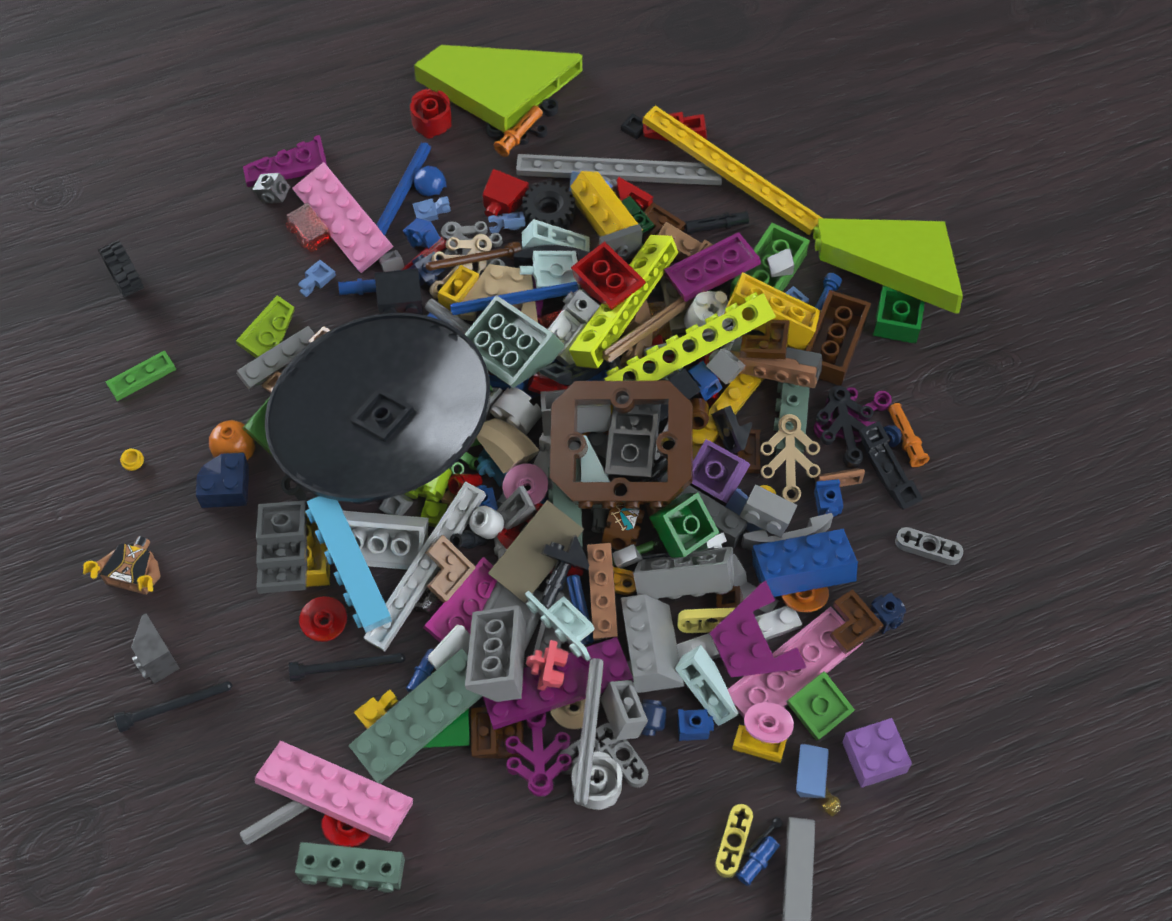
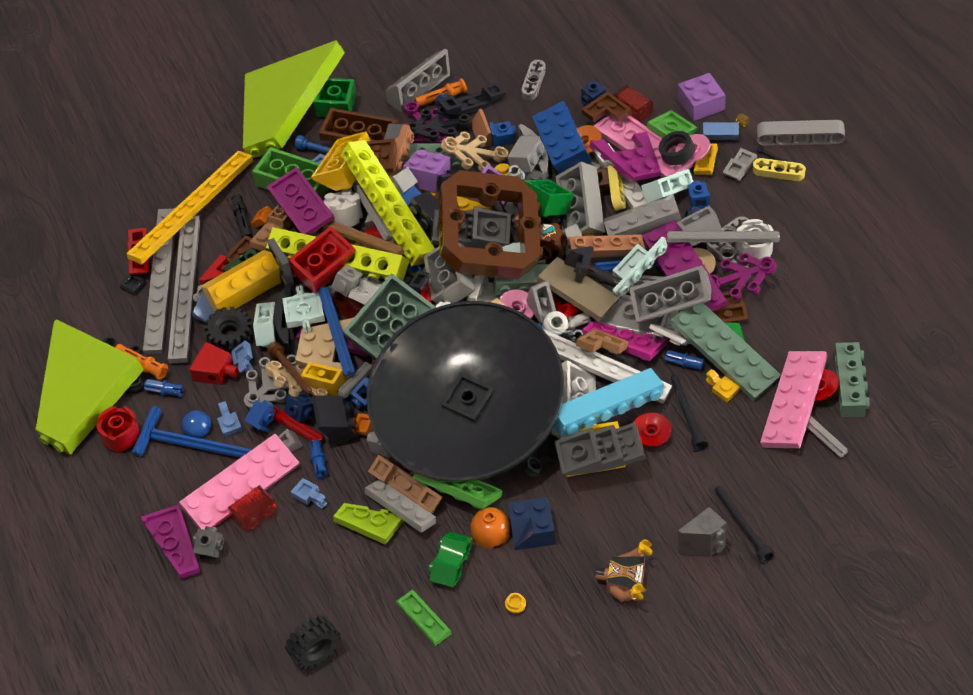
camera: 90 degrees left, 10 degrees down
(203, 401) = (448, 563): none -> green brick
(432, 141) = (145, 433): none -> blue axle
(483, 154) = (163, 387): none -> blue axle
(551, 656) = (674, 264): coral hips -> none
(619, 148) = (159, 294): none -> light grey plate
(711, 237) = (261, 217): none -> orange plate
(729, 498) = (515, 171): none -> light grey pin
(747, 789) = (740, 164): none -> light grey slope
(753, 398) = (427, 168): none -> medium lavender brick
(758, 860) = (791, 154): blue pin -> none
(765, 713) = (682, 155): none -> black tyre
(781, 263) = (297, 157): slope -> none
(871, 661) = (639, 104): none -> clear red brick
(927, 407) = (419, 80): none -> light grey slope

